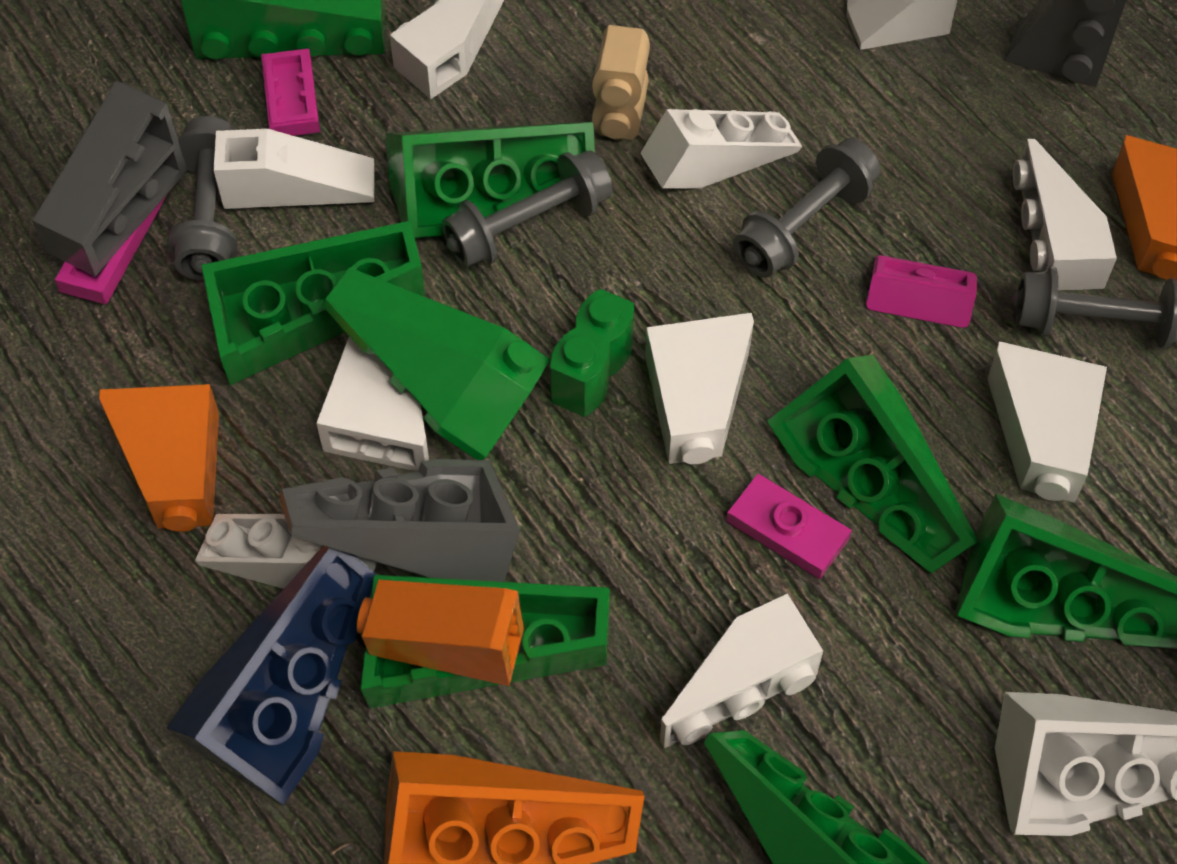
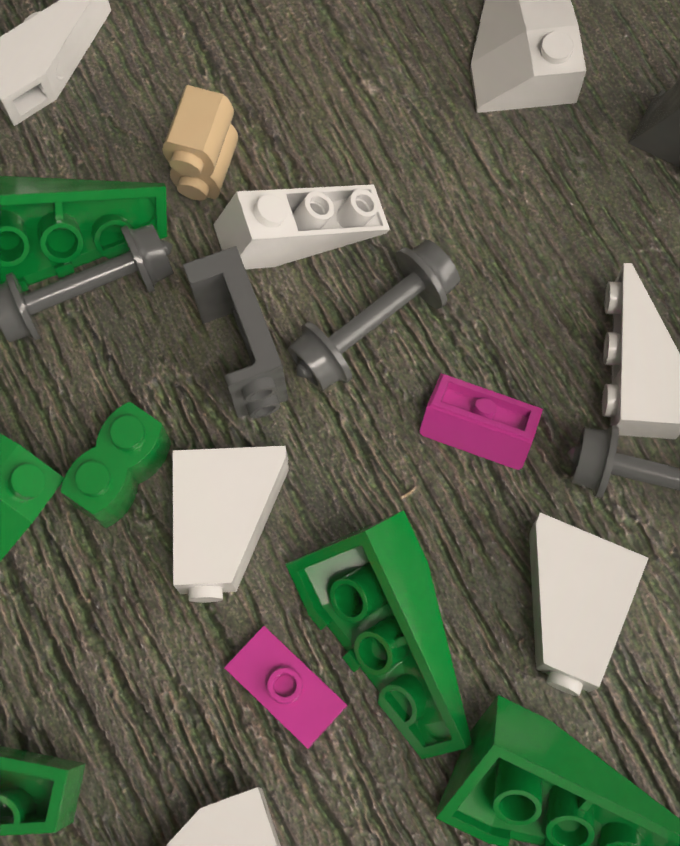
camera: 10 degrees right, 15 degrees up
(679, 198) = (223, 288): none -> dark grey panel

